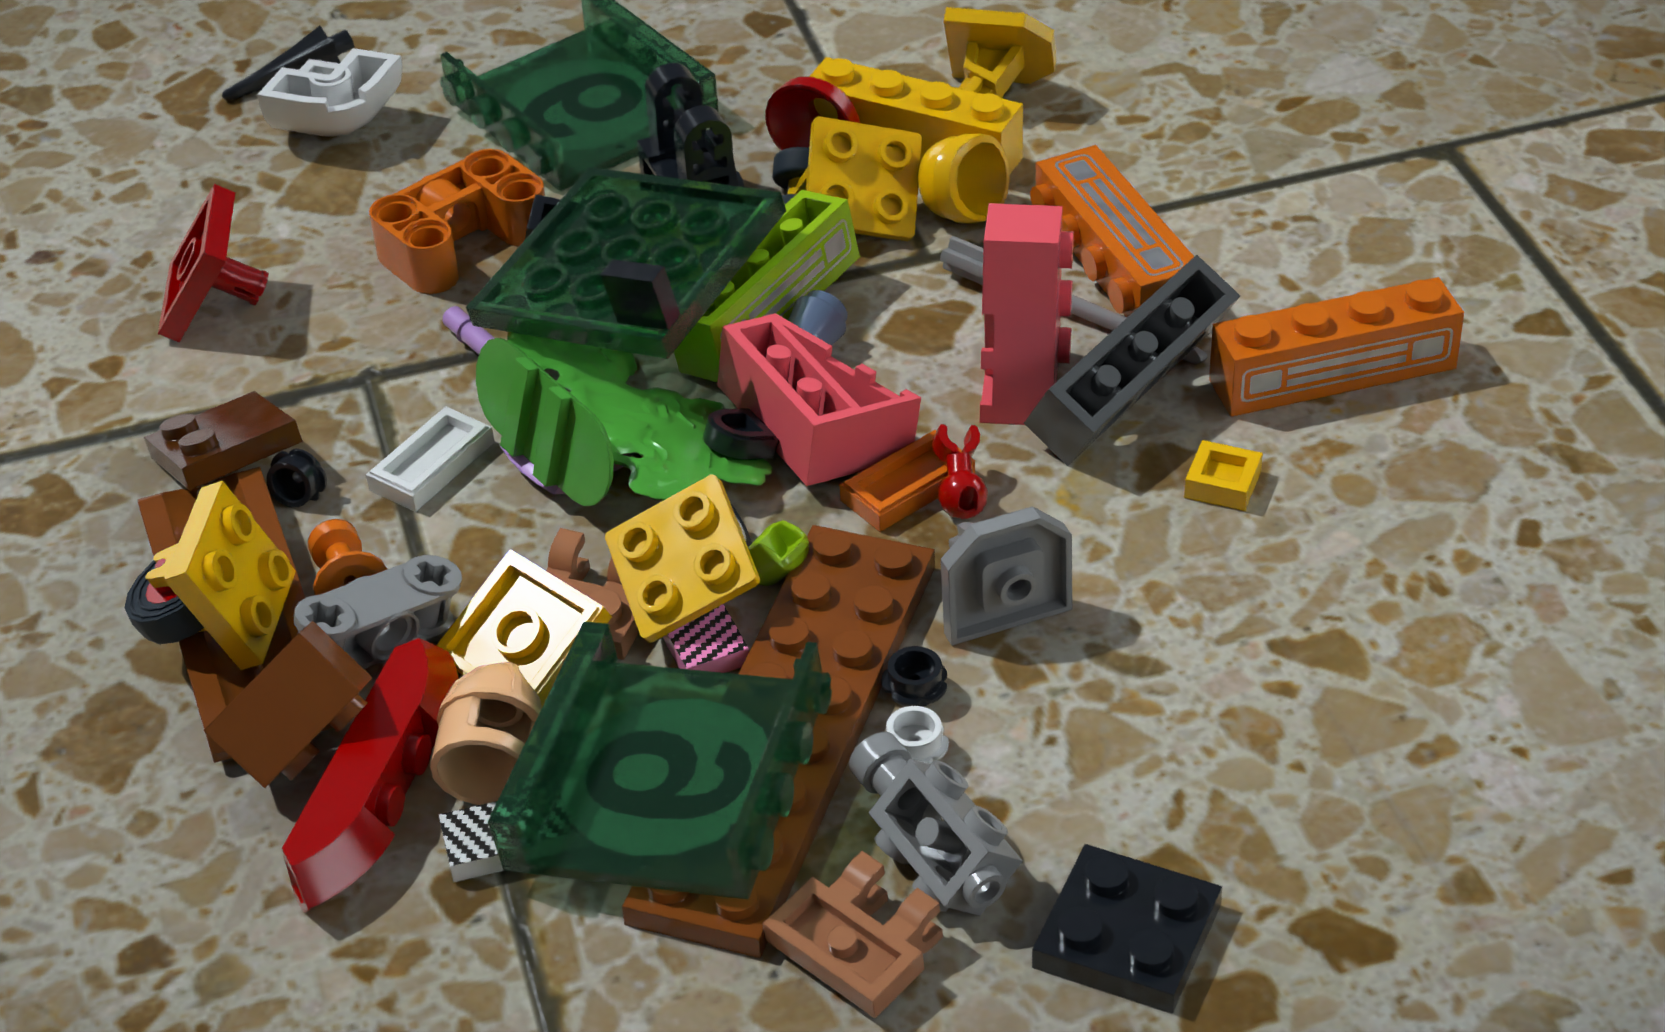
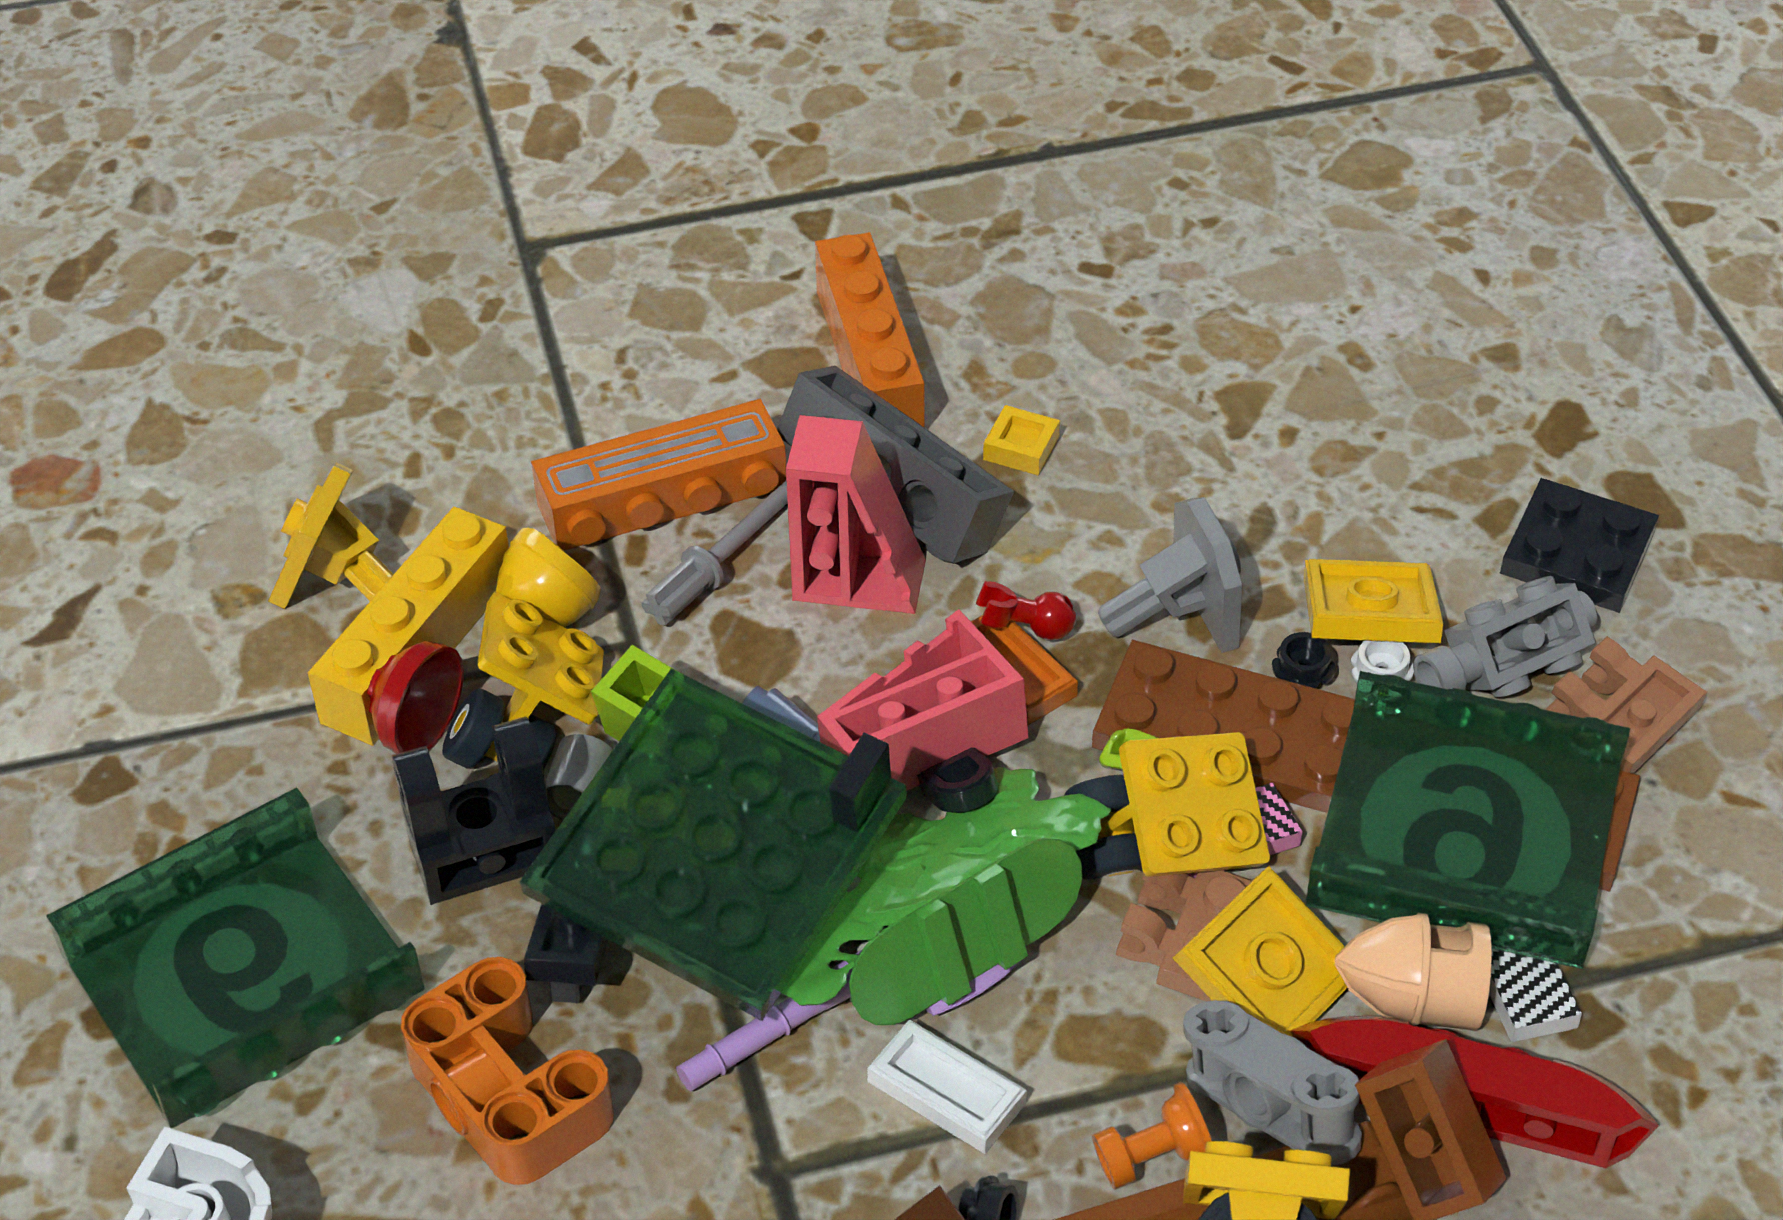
camera: 90 degrees left, 5 degrees up
(998, 724) = (1372, 601): none -> yellow tile

